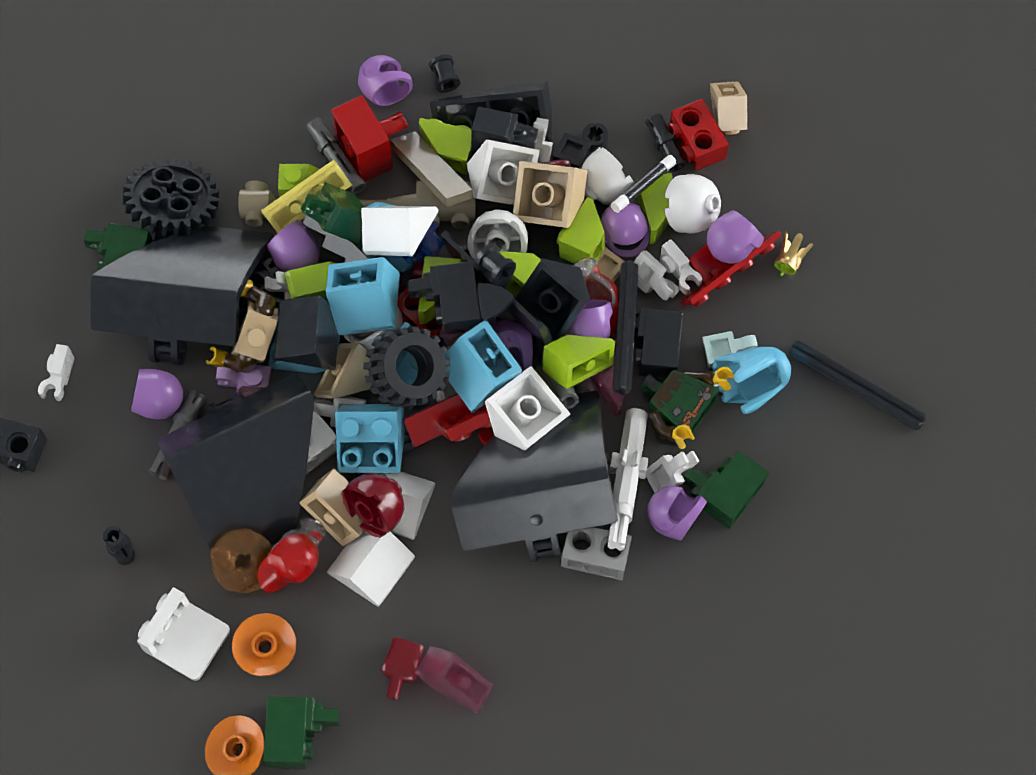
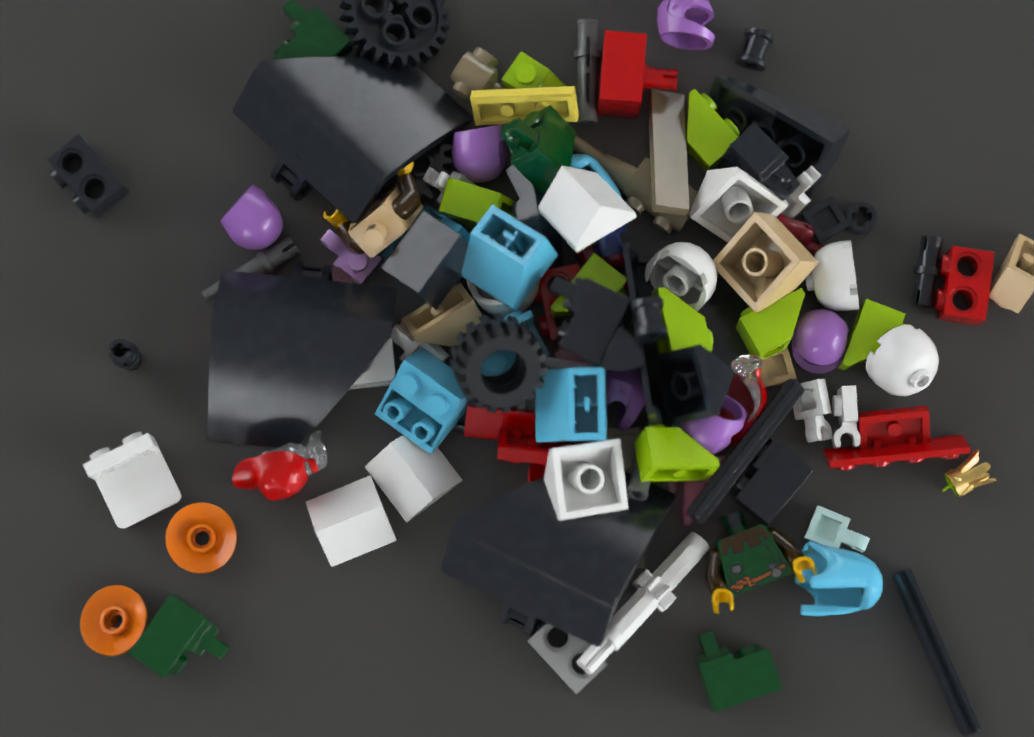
camera: 30 degrees right, 15 degrees up
(59, 367) = (181, 129): white plate -> none
(224, 556) = (224, 425): clear orange plate -> none
(327, 506) = (350, 445): tan slope -> none
(376, 502) = (386, 476): dark red cylinder -> none
(401, 664) = (314, 641): dark red piece -> none
(454, 678) = (352, 687): clear pink slope -> none
(643, 183) = (867, 310): black bar -> none
(668, 470) = (685, 623): white plate -> none
(673, 511) = (665, 667): medium lavender helmet -> none
(732, 238) = (914, 429): medium lavender helmet -> none

